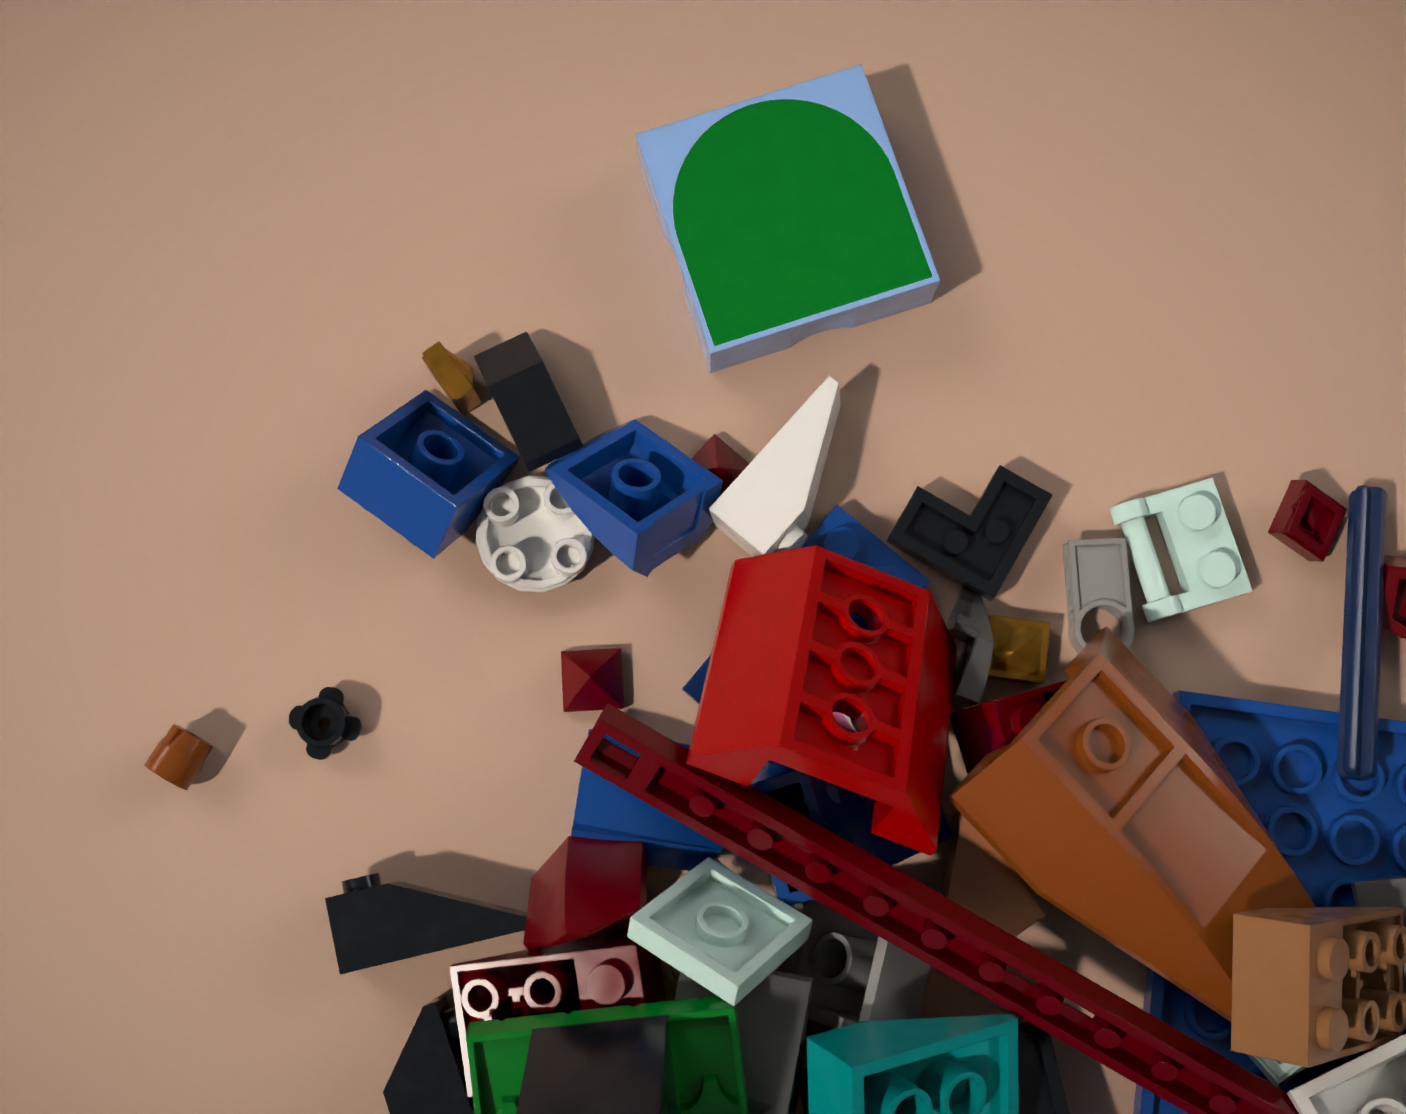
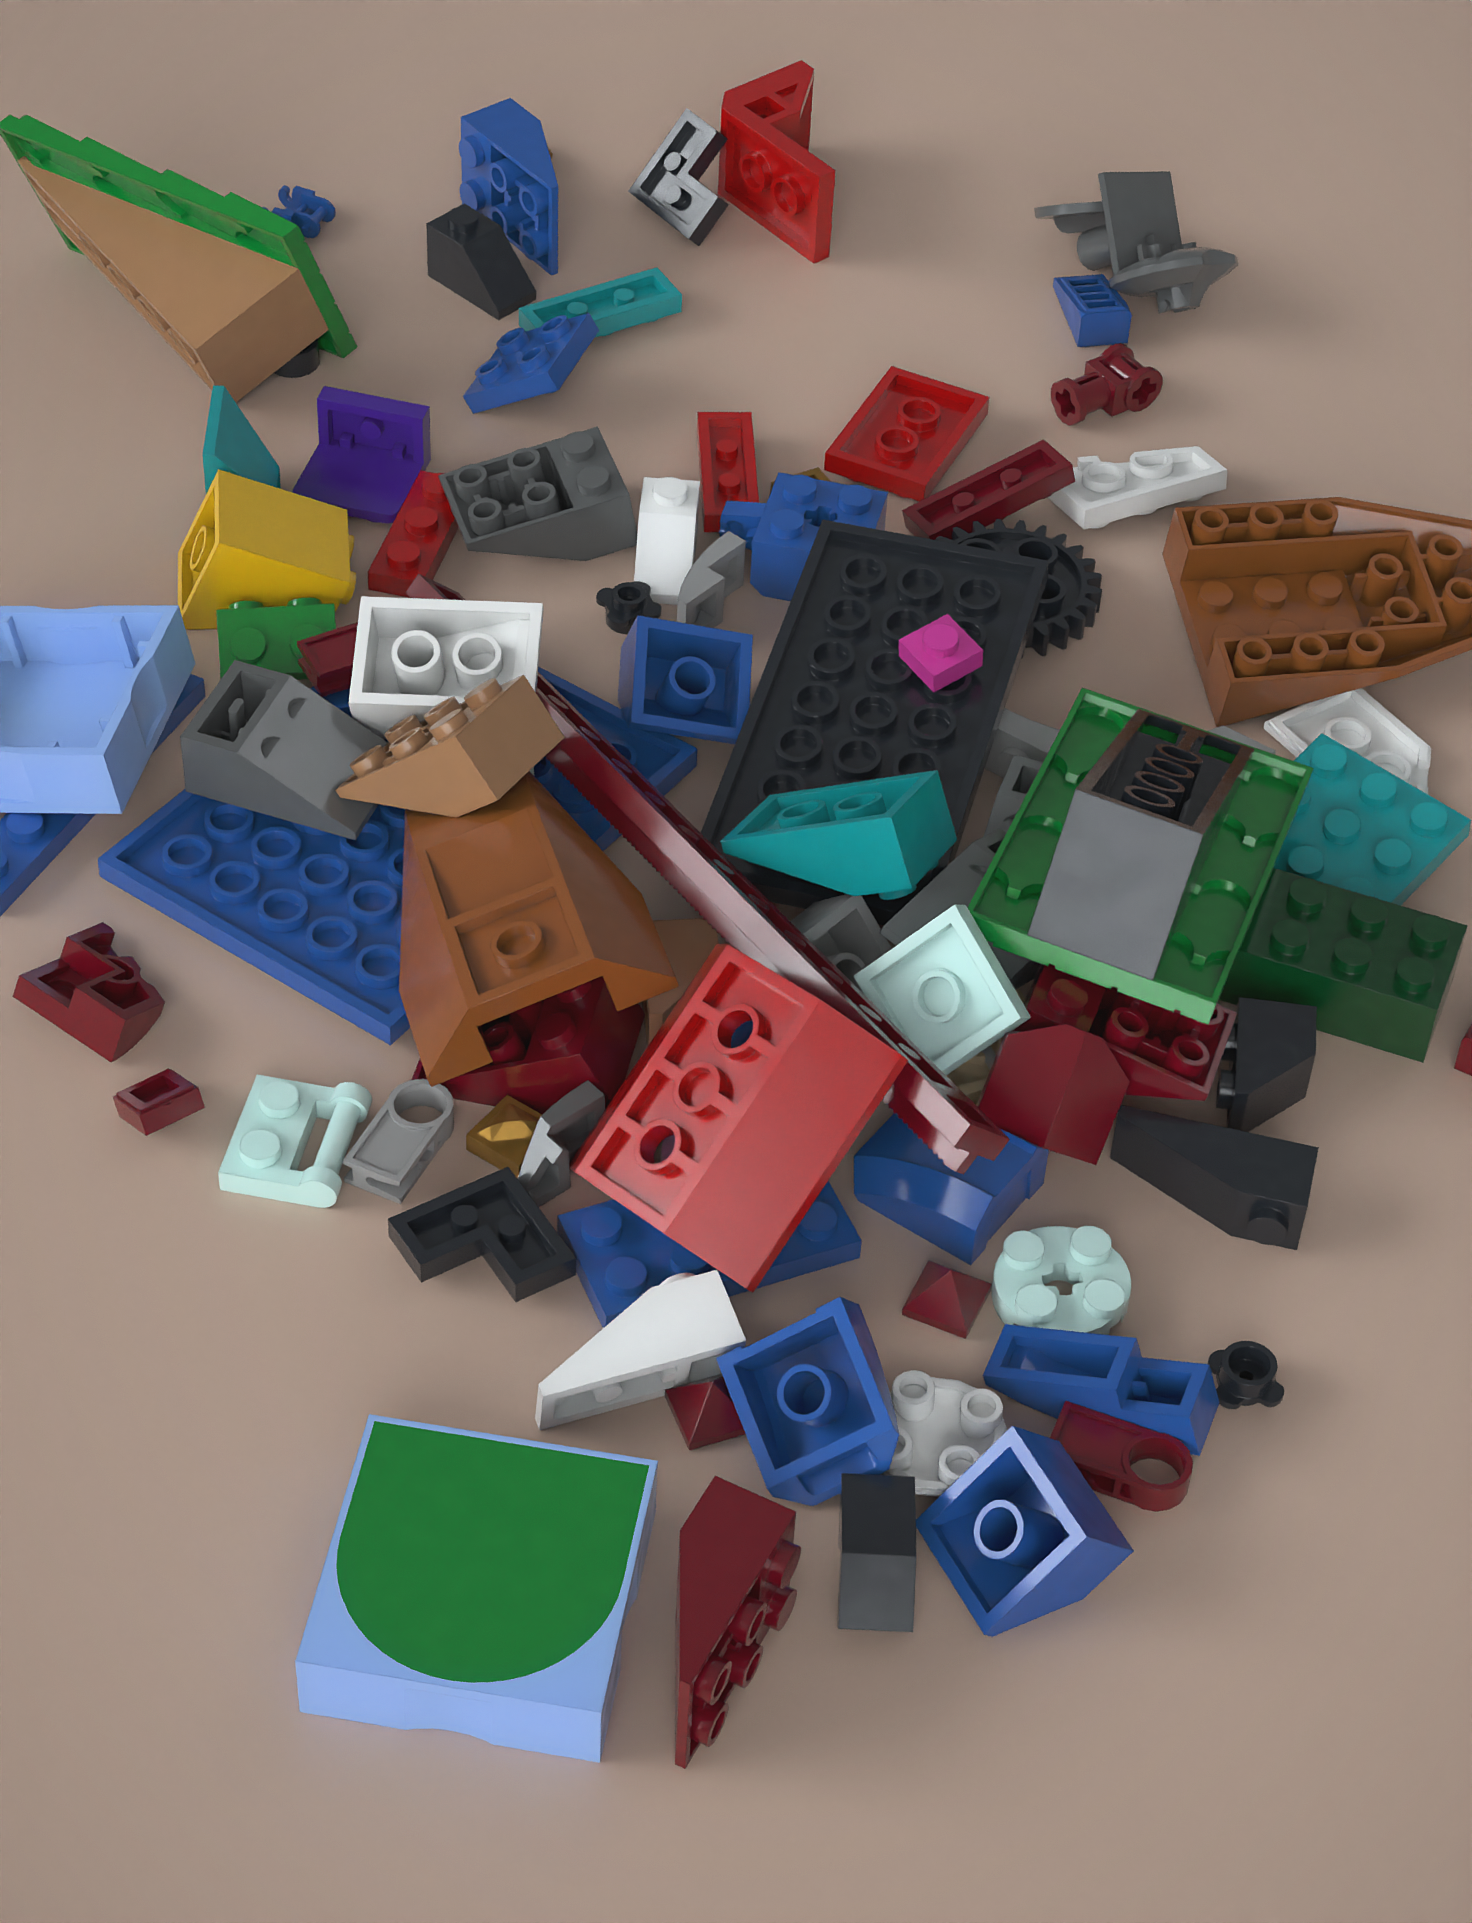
camera: 155 degrees left, 35 degrees down
(179, 757) = (1415, 1409): dark orange hose -> none
(408, 589) = (1109, 1446): none -> dark red piece
(430, 644) = (1105, 1375): none -> blue slope
(453, 376) = (949, 1609): pearl gold tile -> none
(472, 730) = (1065, 1254): none -> light aqua plate
(608, 287) = (729, 1594): none -> dark red slope
(1362, 634) = (185, 997): dark blue axle -> none

